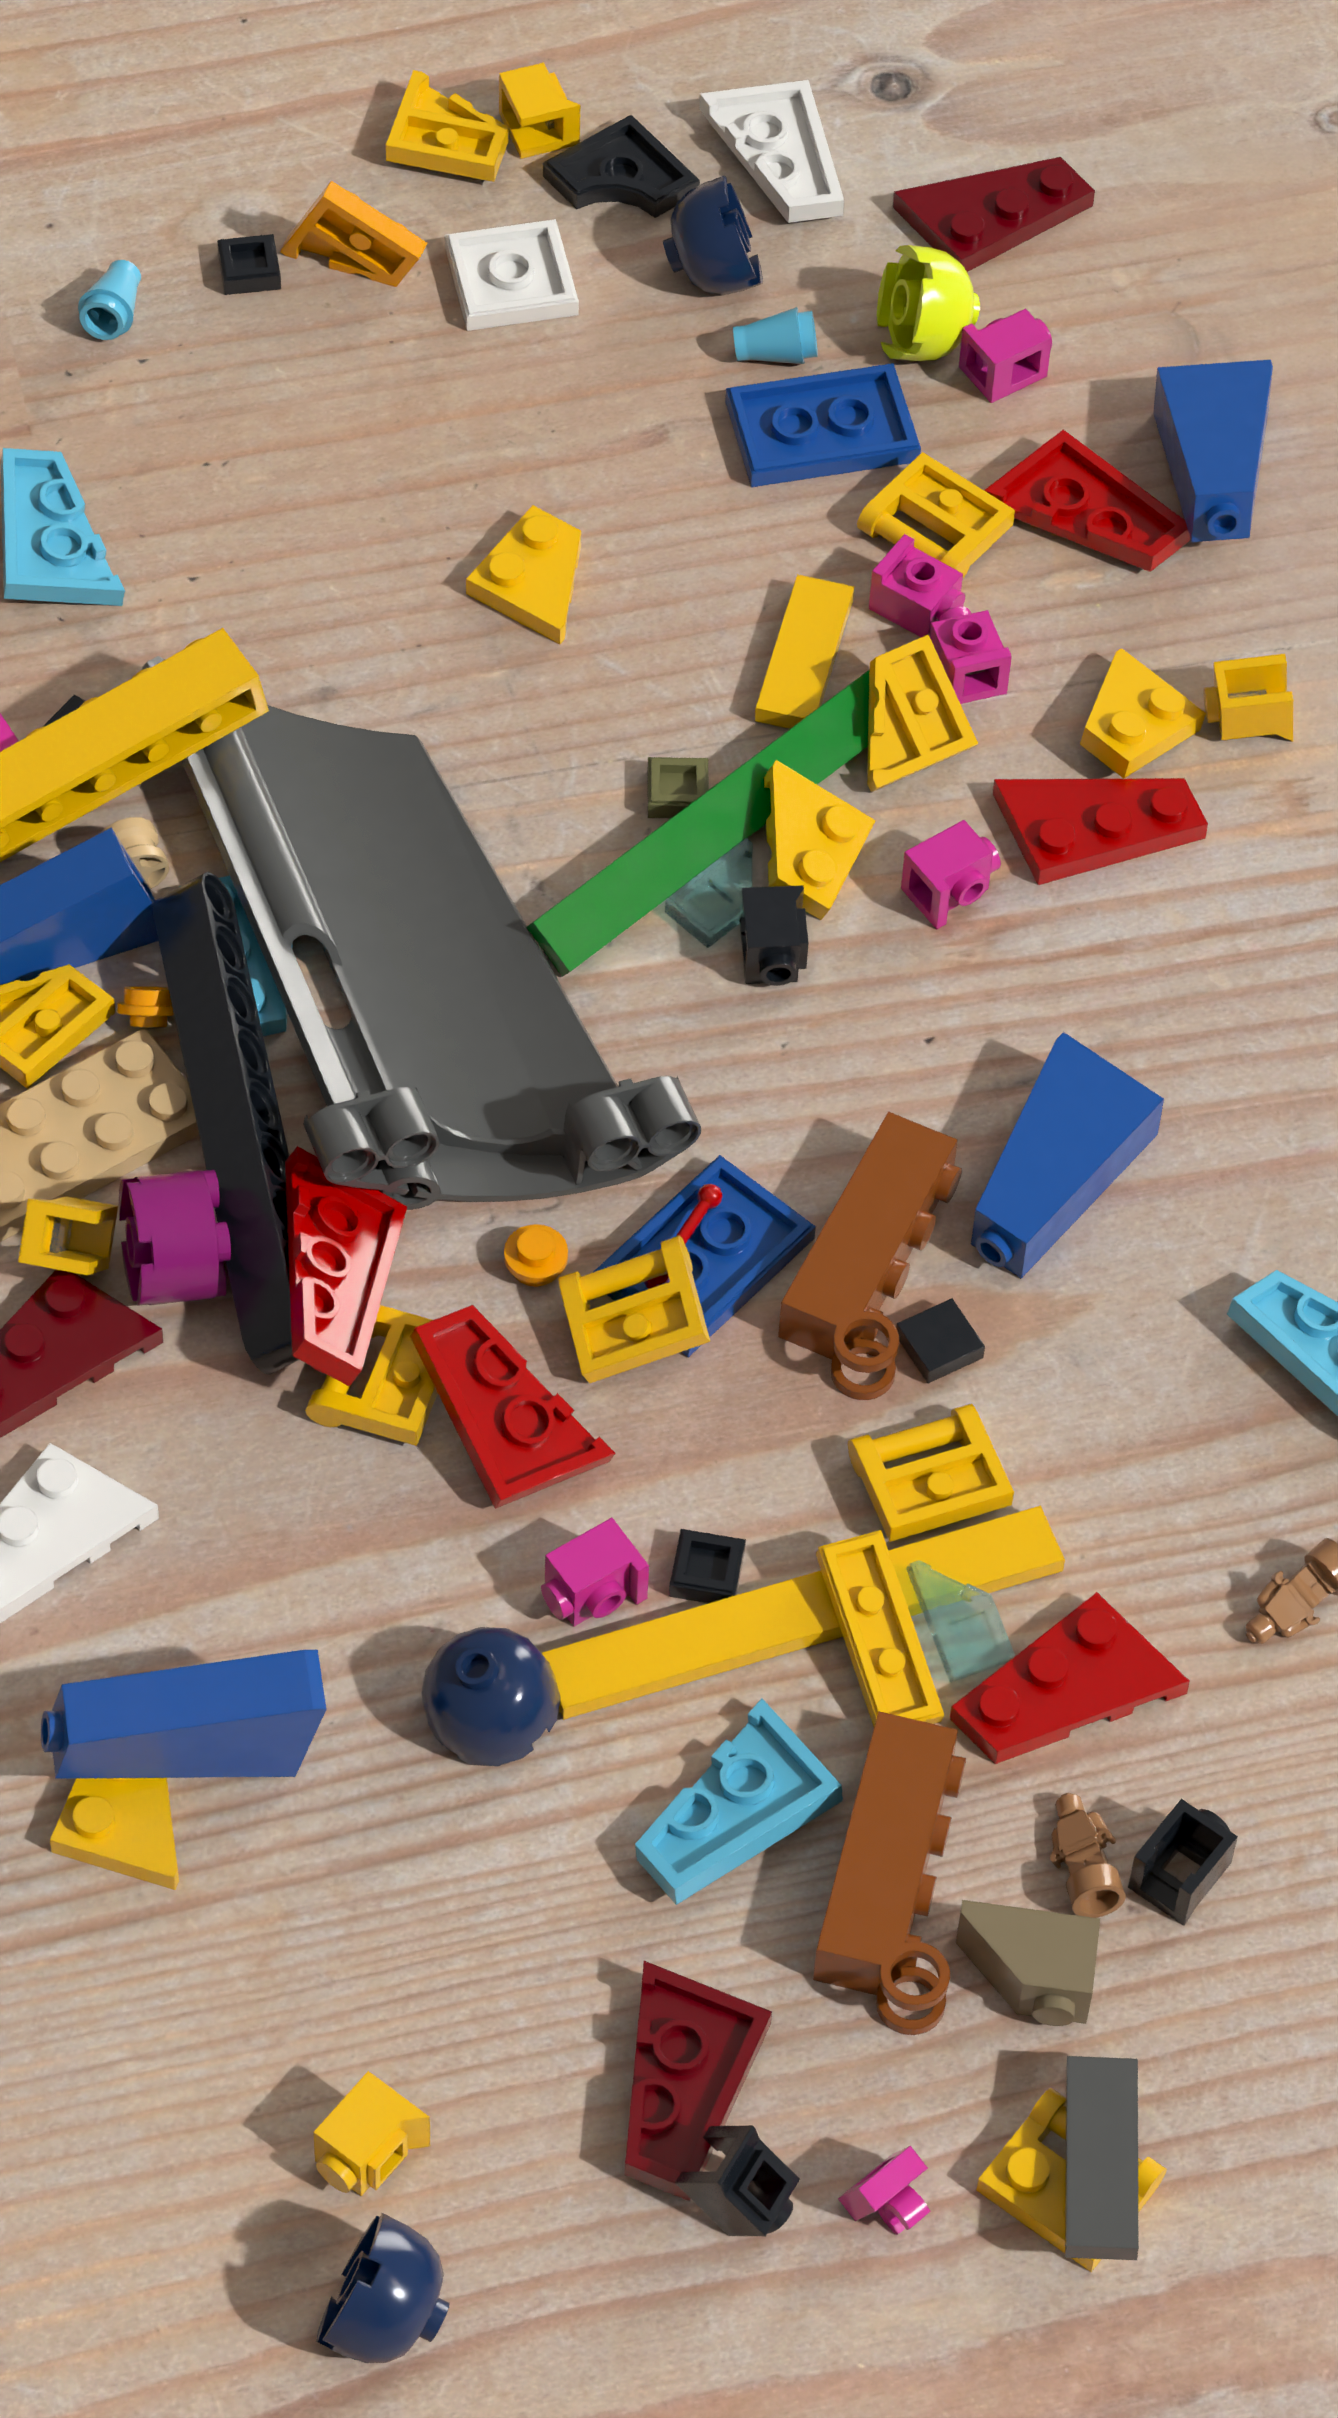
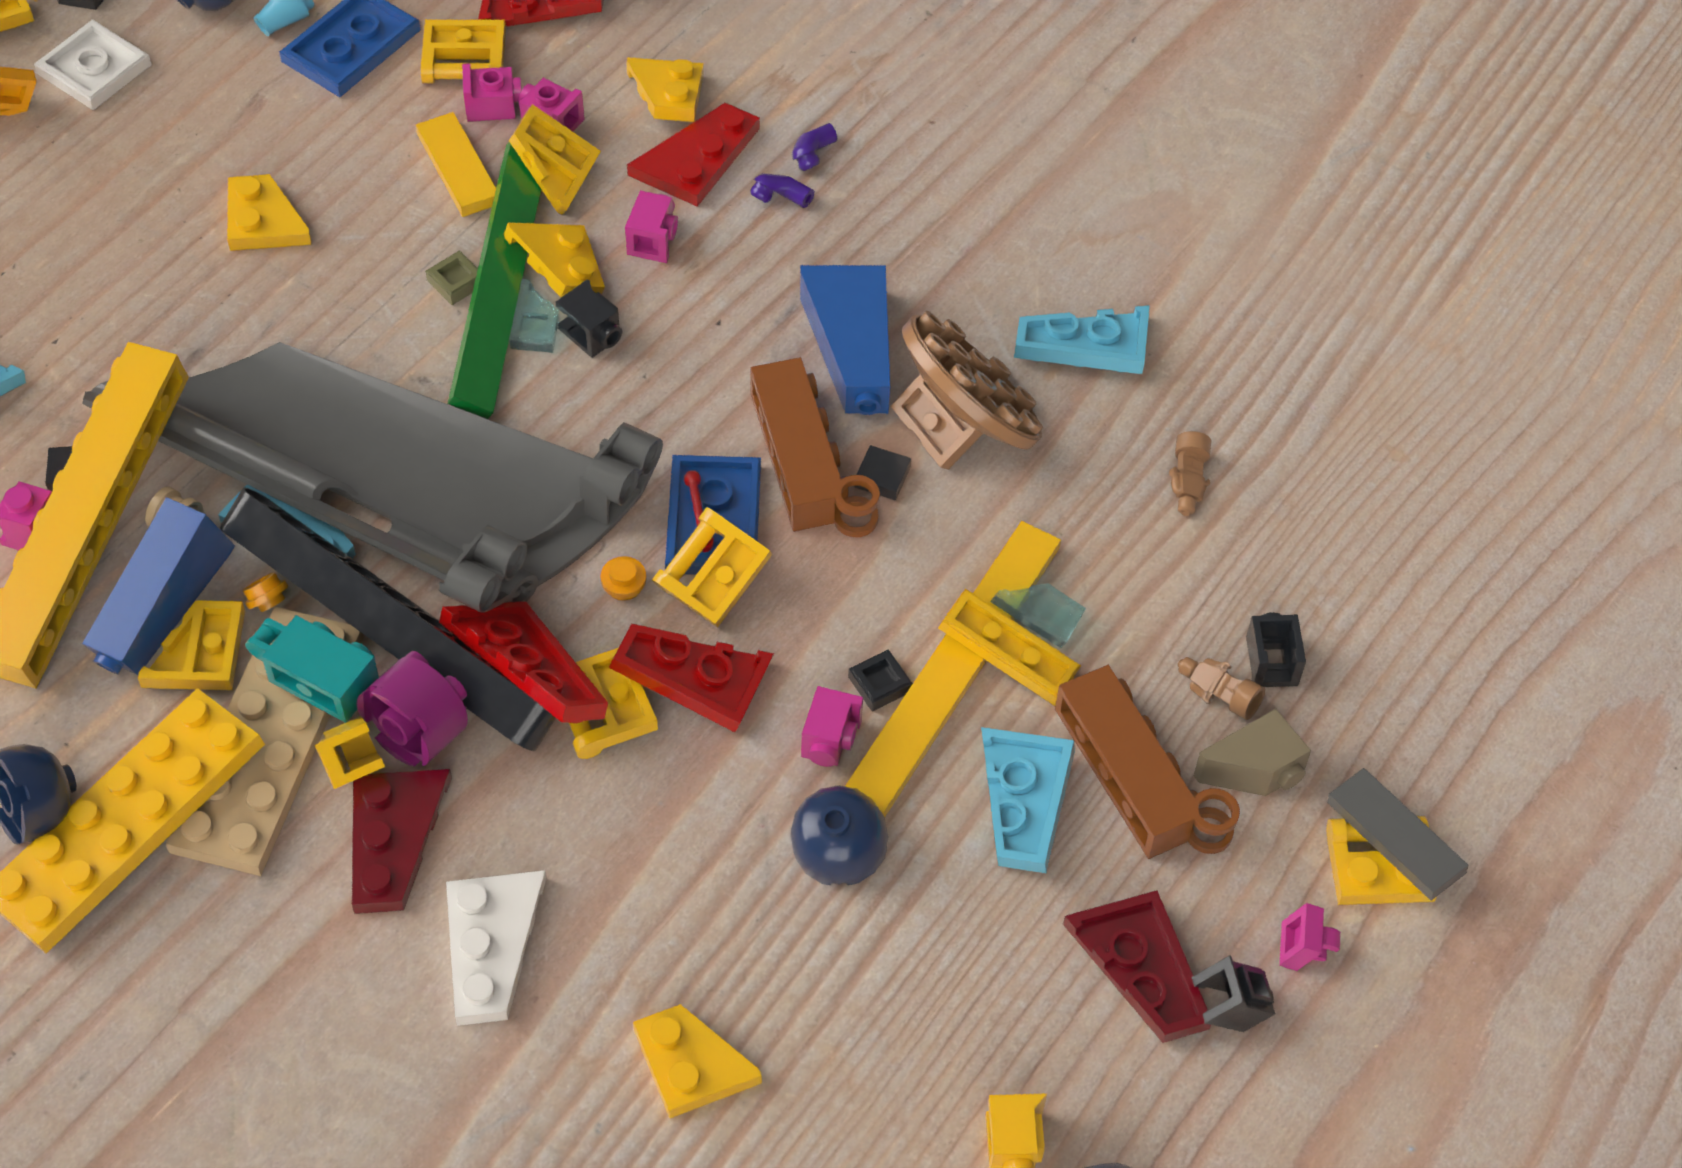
camera: 40 degrees left, 0 degrees up
(115, 1115) = (314, 664): none -> teal brick
(190, 1720) = (698, 974): blue slope -> none
(936, 1487) = (958, 551): yellow plate -> none
(1065, 1679) = (1121, 603): red wing -> none
(1109, 1305) = (960, 394): none -> medium nougat bracket
(1155, 923) = (785, 186): none -> dark purple arm
(1242, 894) = (810, 142): none -> dark purple arm
(1250, 698) = (718, 43): yellow window -> none

